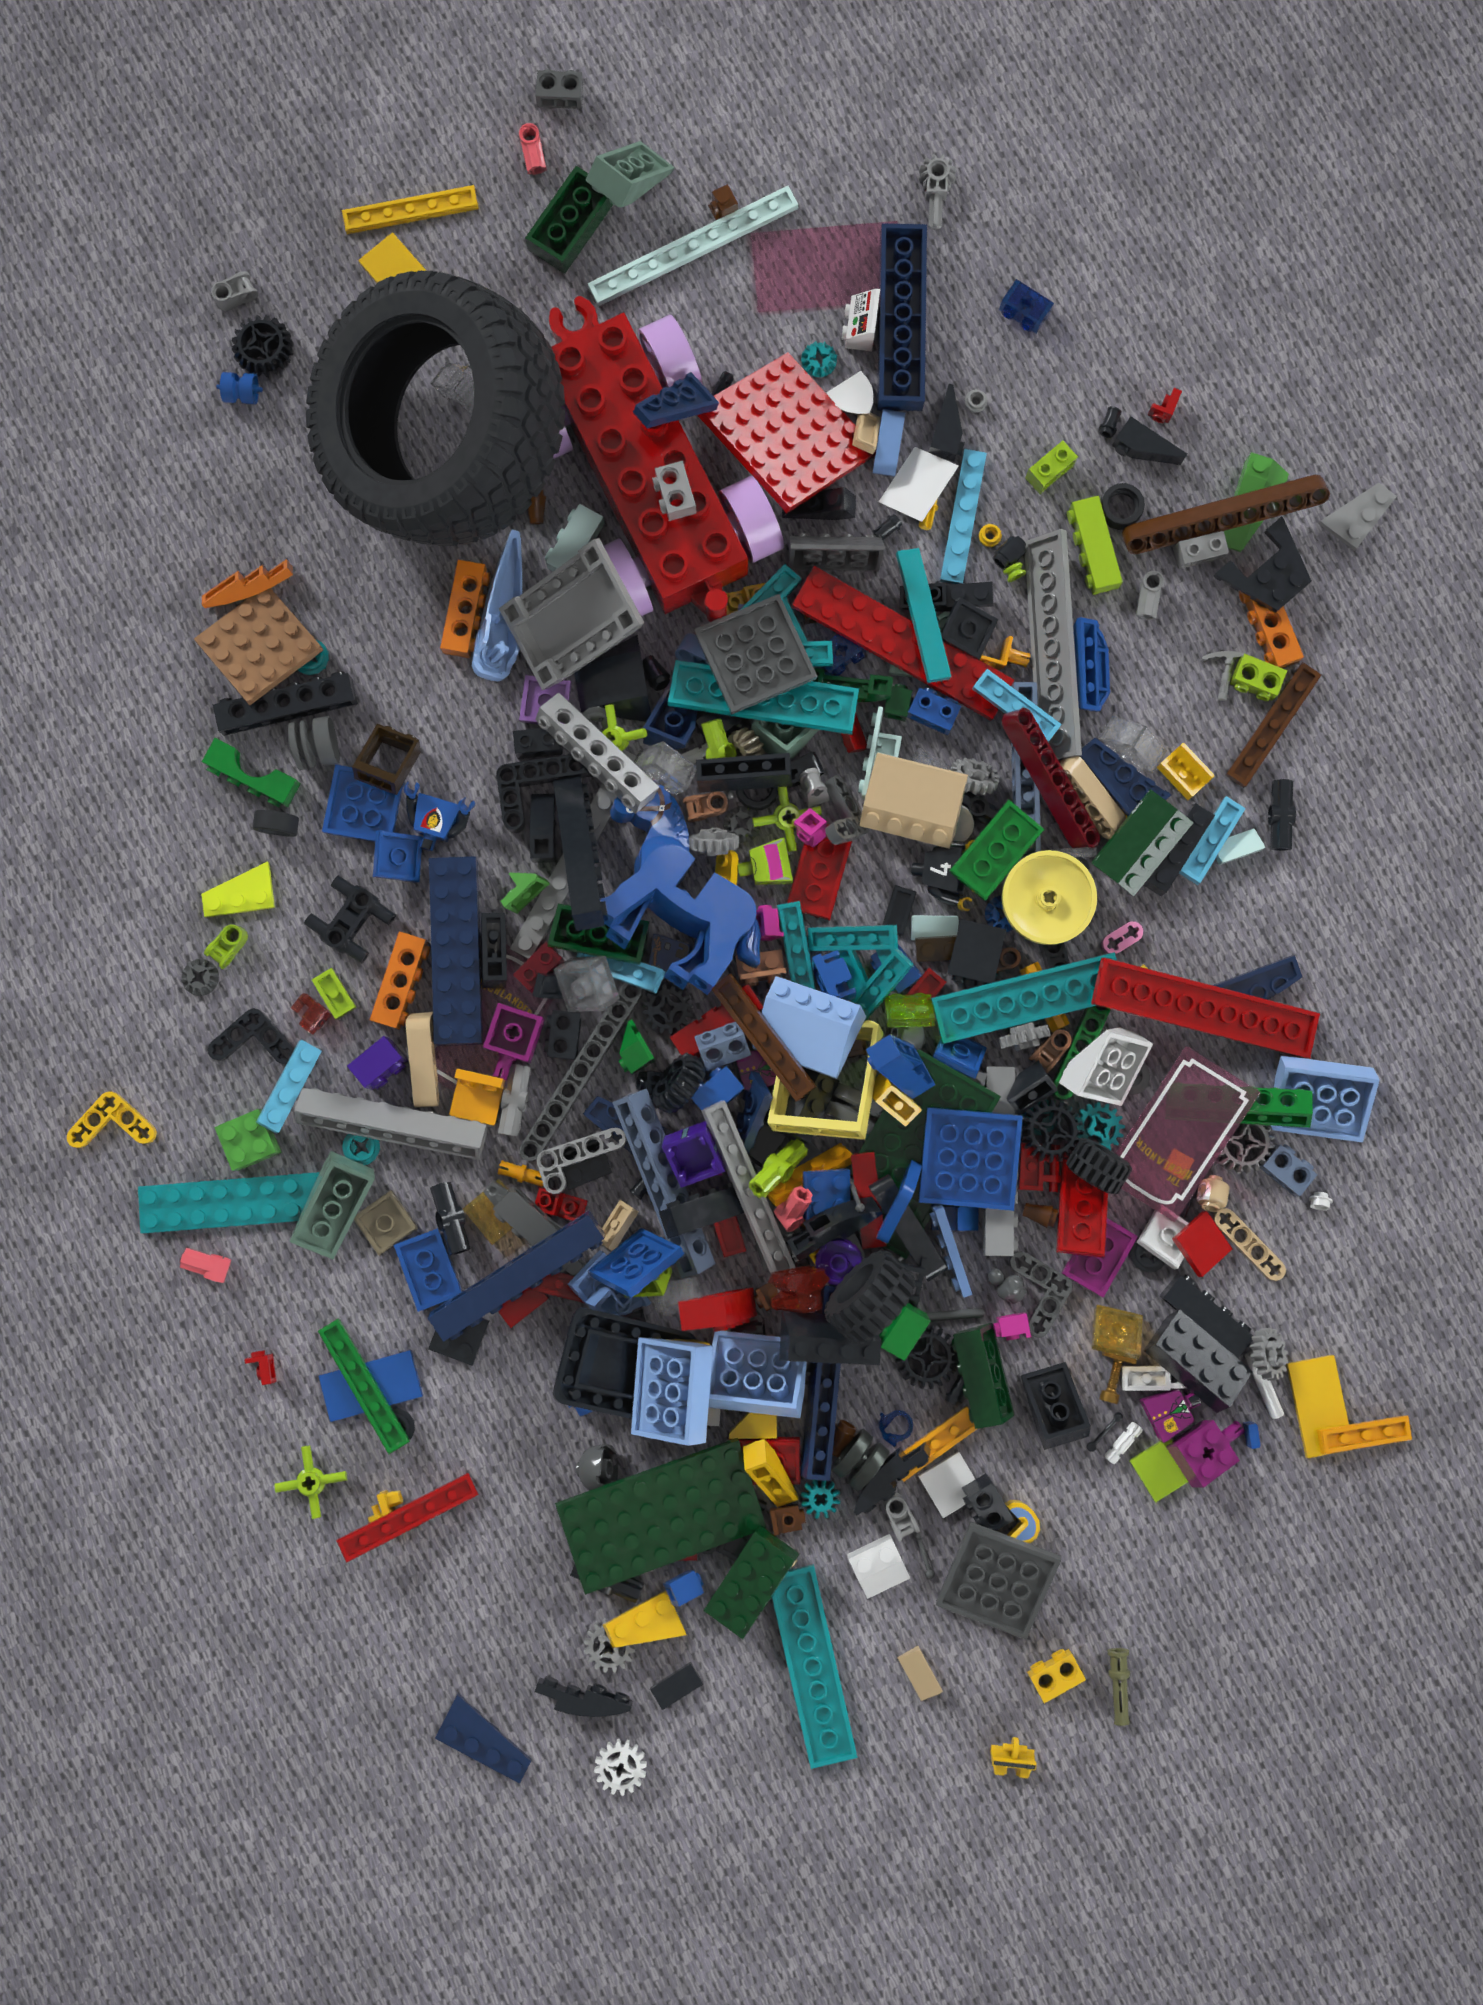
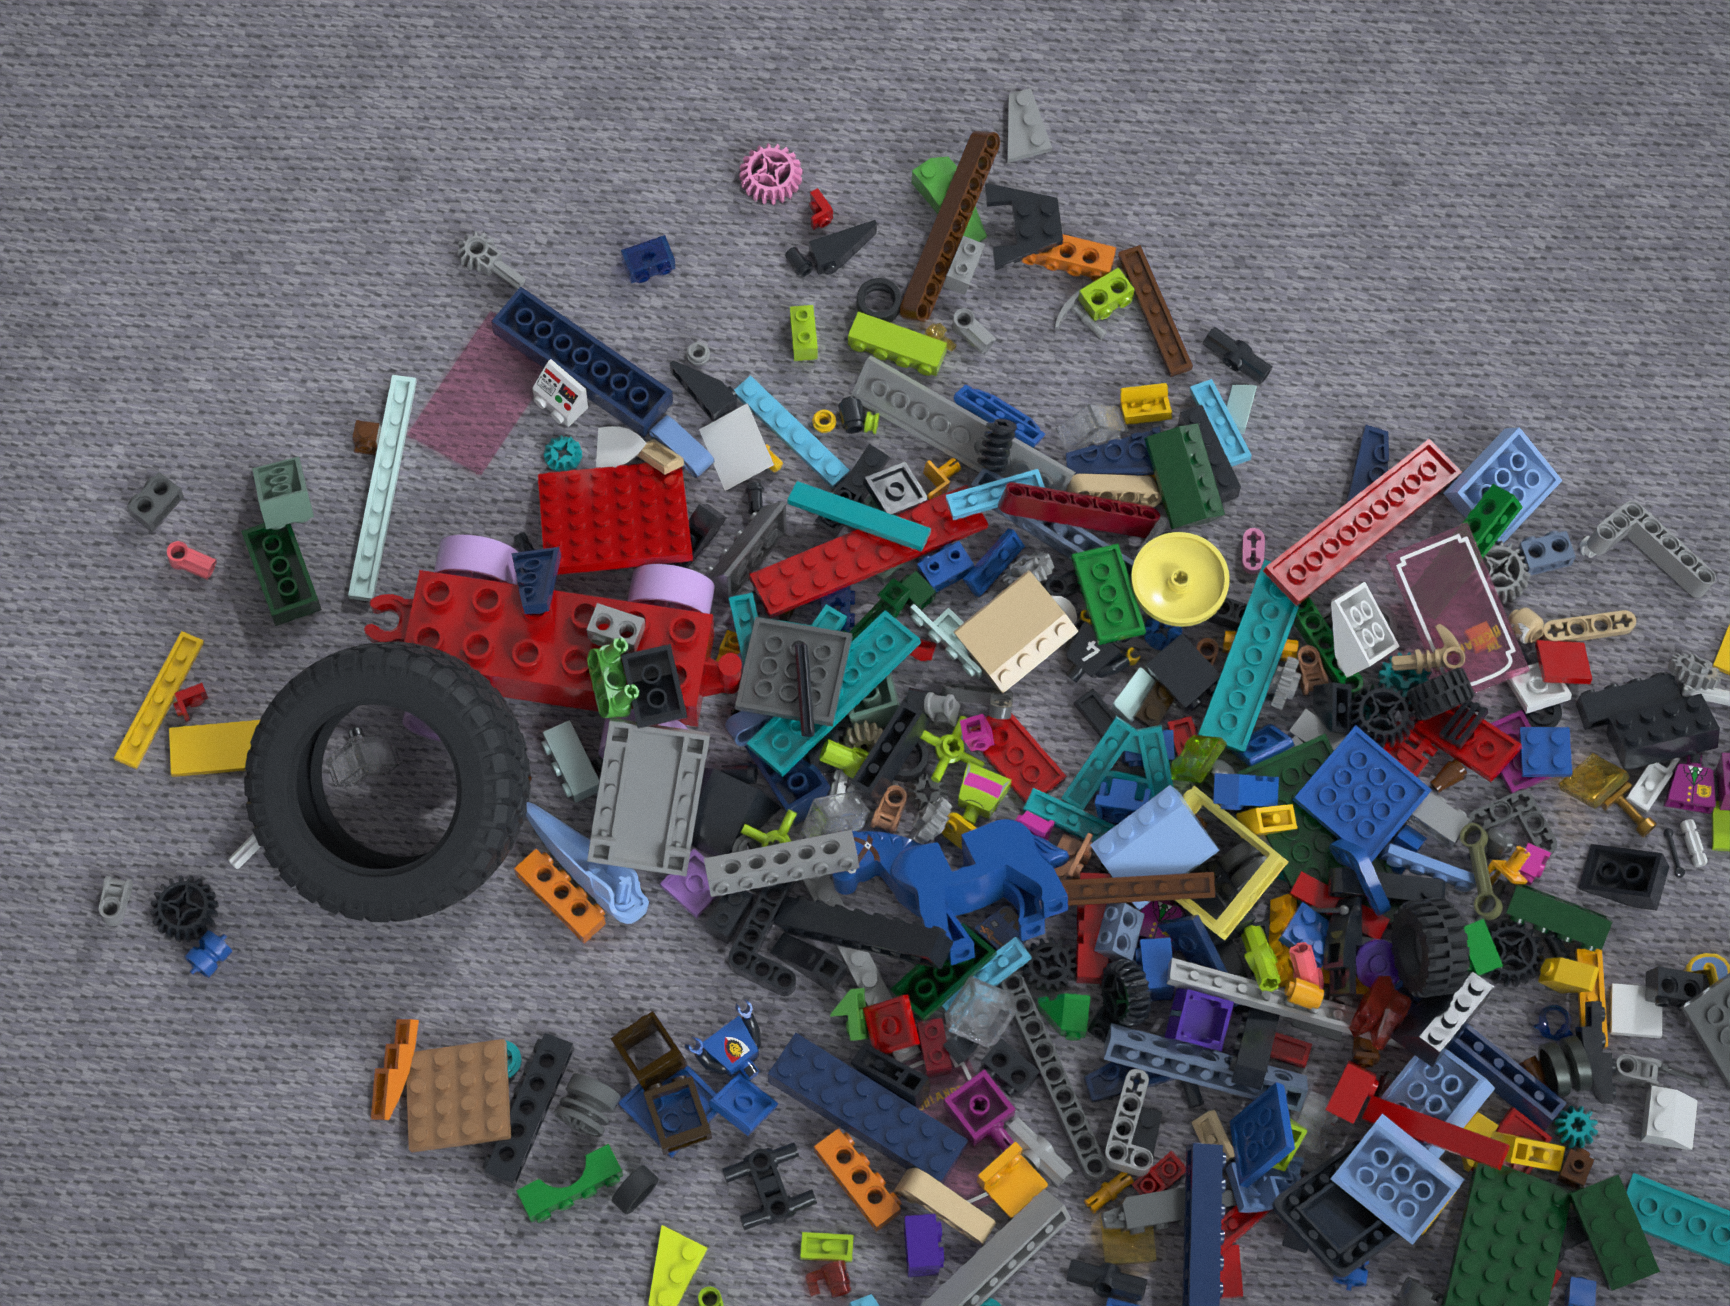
camera: 55 degrees left, 15 degrees down
(368, 825) = (686, 1138): none -> dark brown window
(424, 228) = (192, 697): none -> red bracket
(531, 924) = (891, 1025): none -> red tile
(638, 504) = (609, 680): none -> bright green piece
(646, 552) = (658, 685): none -> black slope
(728, 1399) = (1439, 1133): none -> red tile
(742, 672) = (804, 690): none -> black axle
(771, 1221) = (1304, 993): none -> light orange brick
(937, 1415) = (1568, 975): none -> yellow slope
(965, 745) = (994, 562): none -> blue tile
(974, 1292) = (1481, 871): none -> olive piece
(992, 1312) = (1510, 868): none -> light orange bracket
(1058, 679) = (998, 445): none -> black piece
(1087, 1207) = (1474, 707): none -> black tile
(1114, 1278) = (1545, 752): none -> blue plate
(1123, 1138) = (1431, 660): none -> tan piece
(1127, 569) = (937, 331): none -> clear yellow plate
(1155, 337) = (785, 164): none -> bright pink gear
(1361, 1252) = (1657, 543): none -> light grey beam

